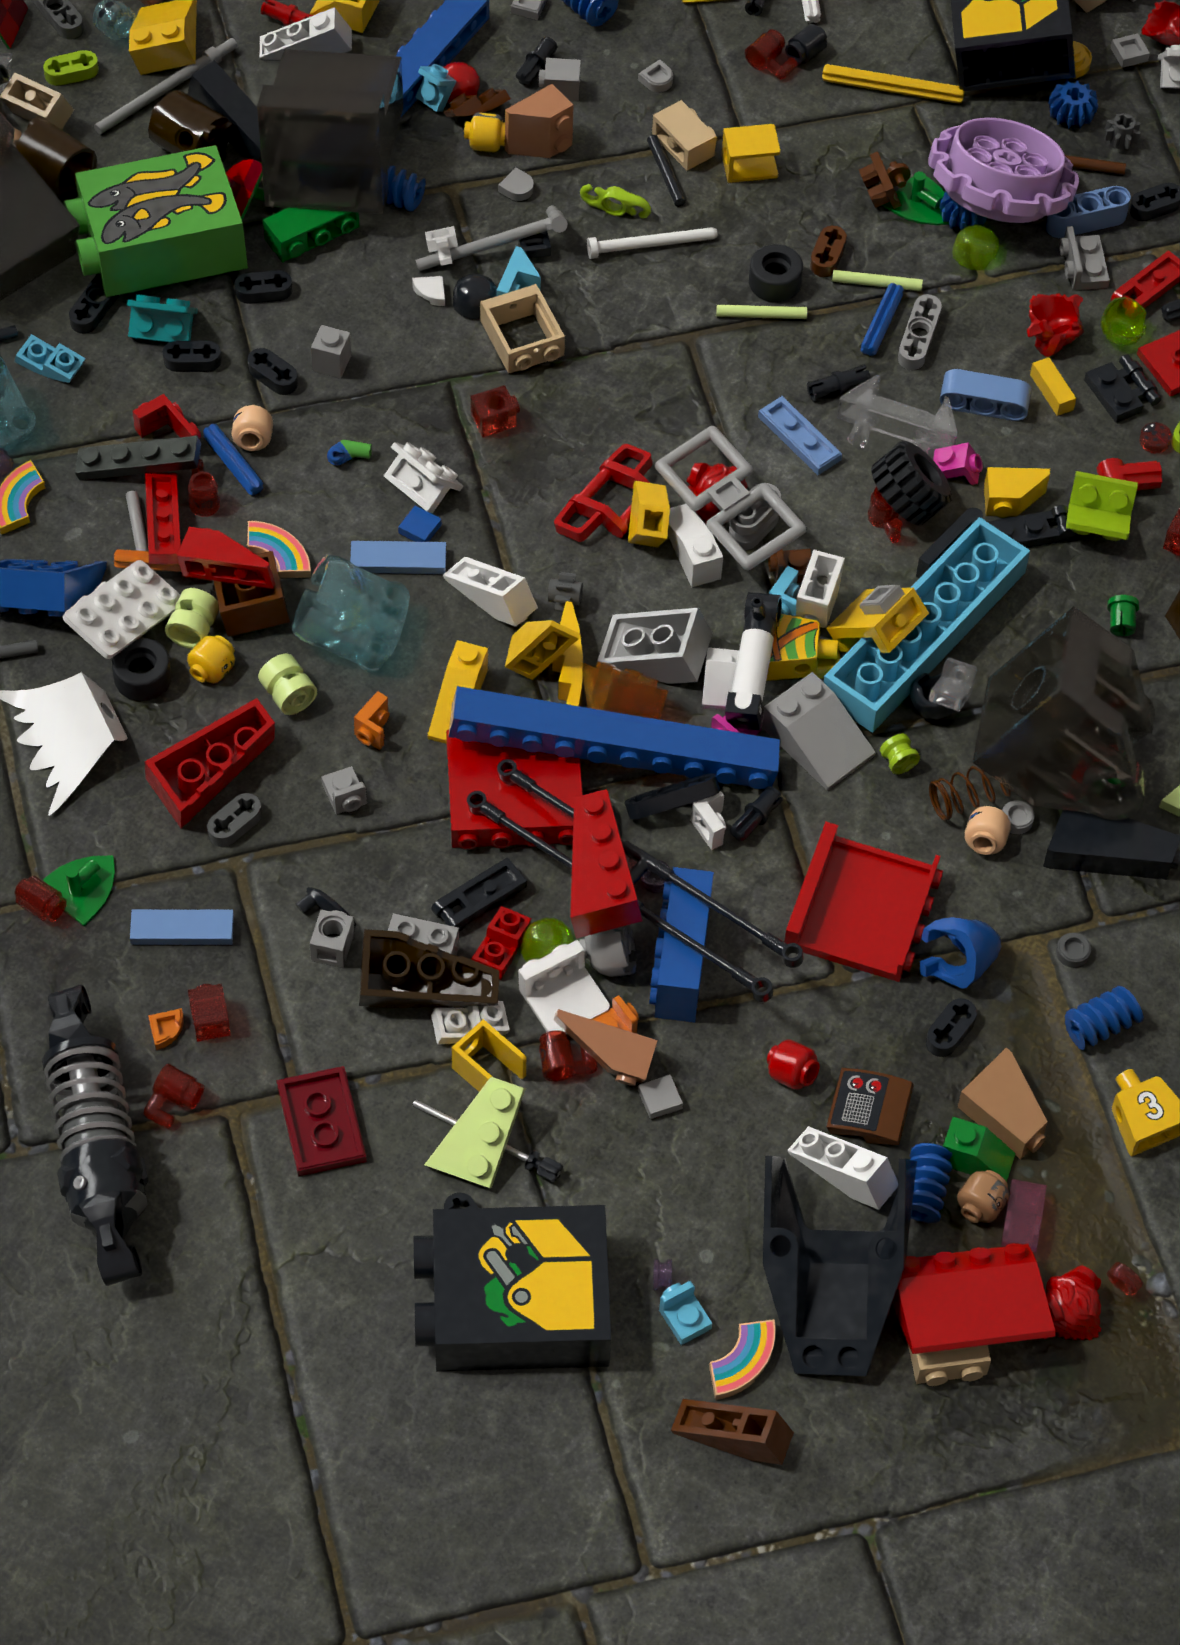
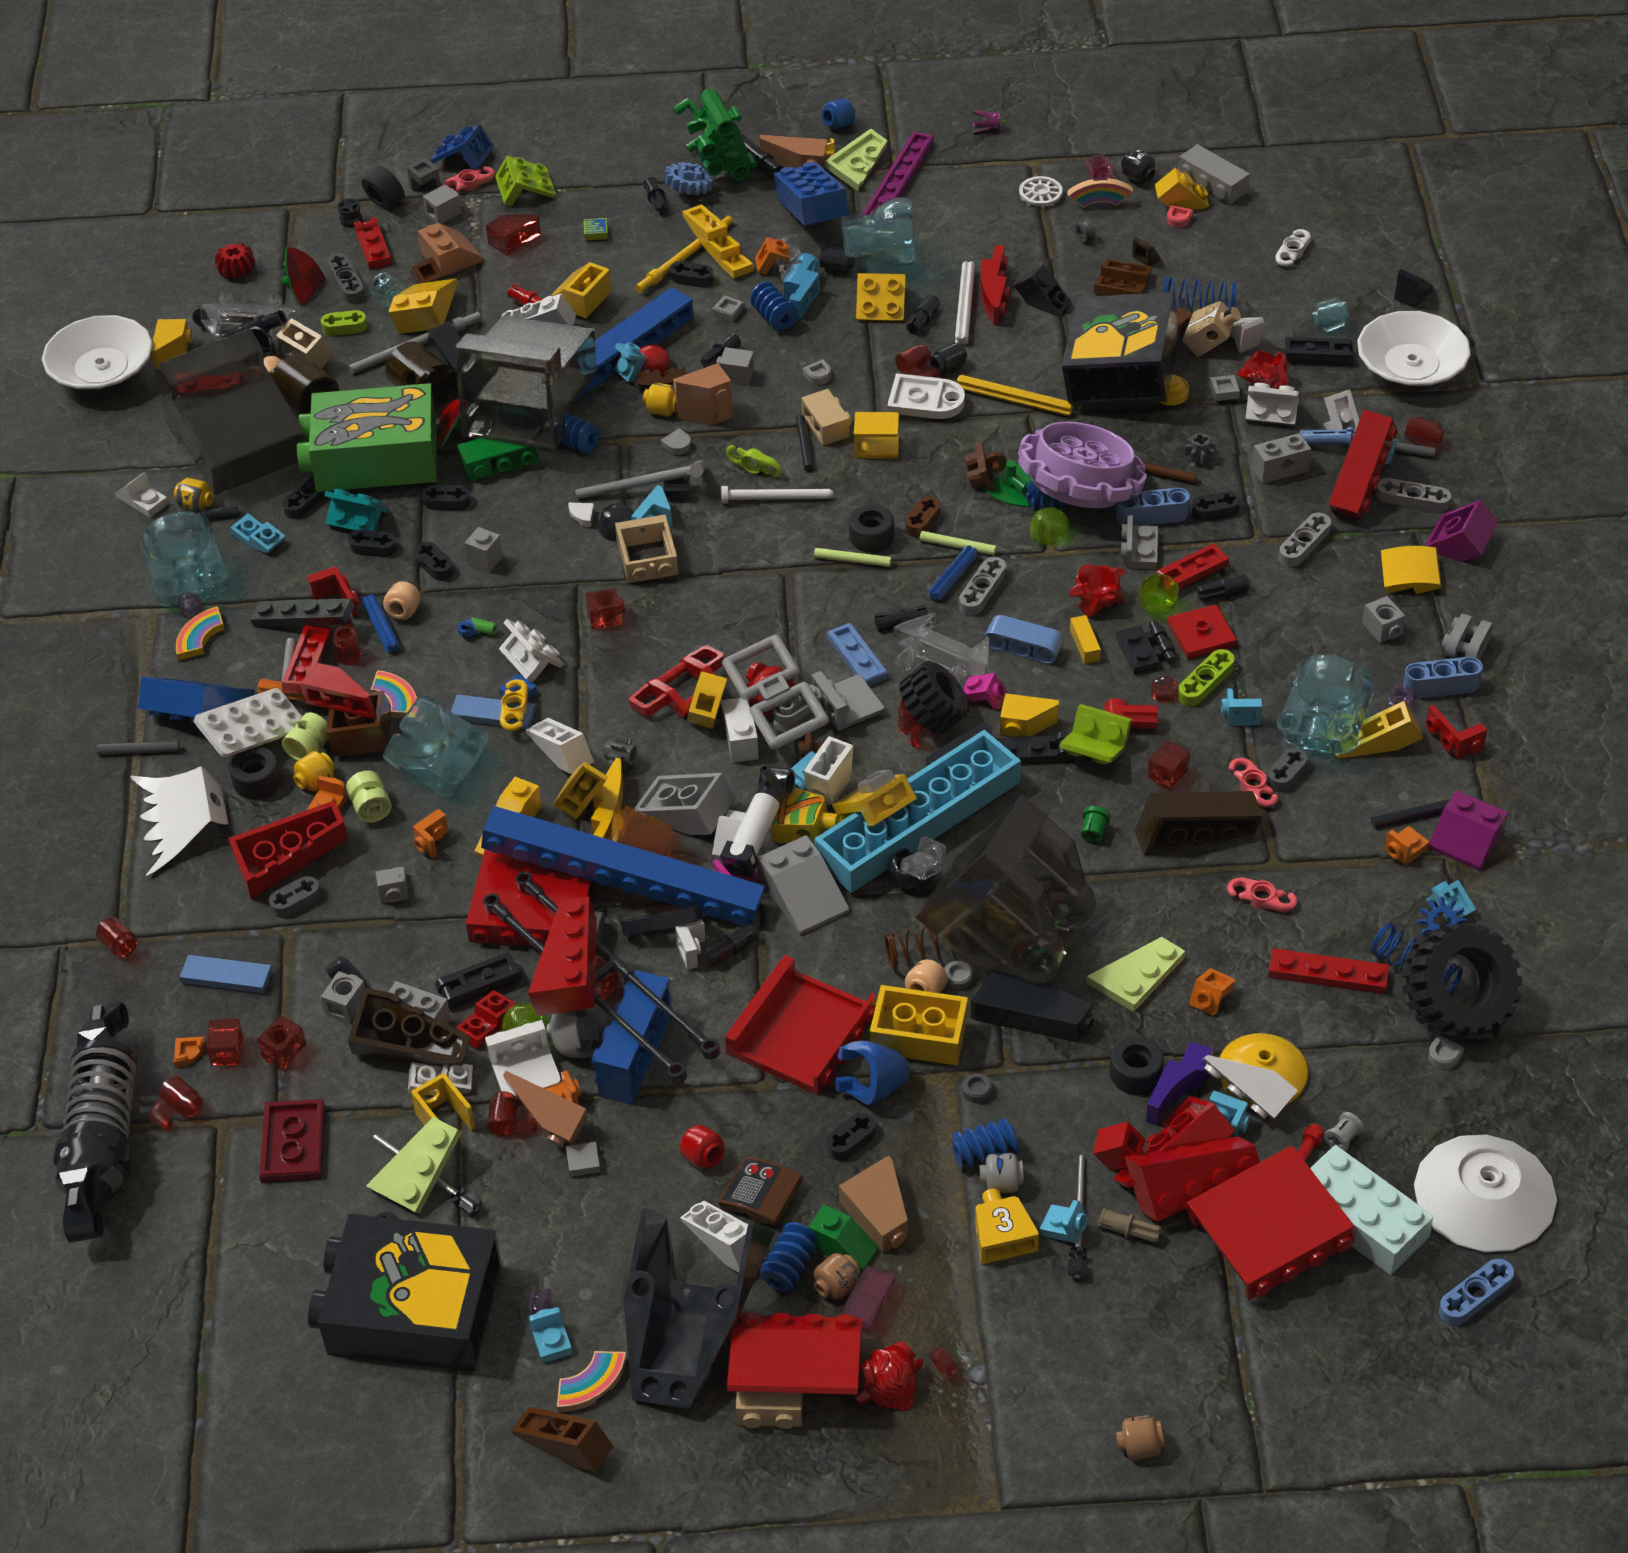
camera: 15 degrees right, 10 degrees down
(84, 885) = (157, 933): green shield -> none
(238, 689) = (329, 790): none -> orange bracket
(275, 991) = (281, 1042): none -> clear red brick
(420, 558) = (510, 713): none -> yellow piece
(441, 242) = (599, 477): white plate -> none
(792, 96) = (925, 397): none -> white plate
(808, 493) = (847, 700): none -> light grey bracket
(899, 753) = (867, 911): lime wheel -> none
(997, 884) = (920, 1024): none -> yellow brick
(1073, 104) = (1163, 423): blue gear -> none
(1132, 1049) = (1002, 1172): none -> light grey head

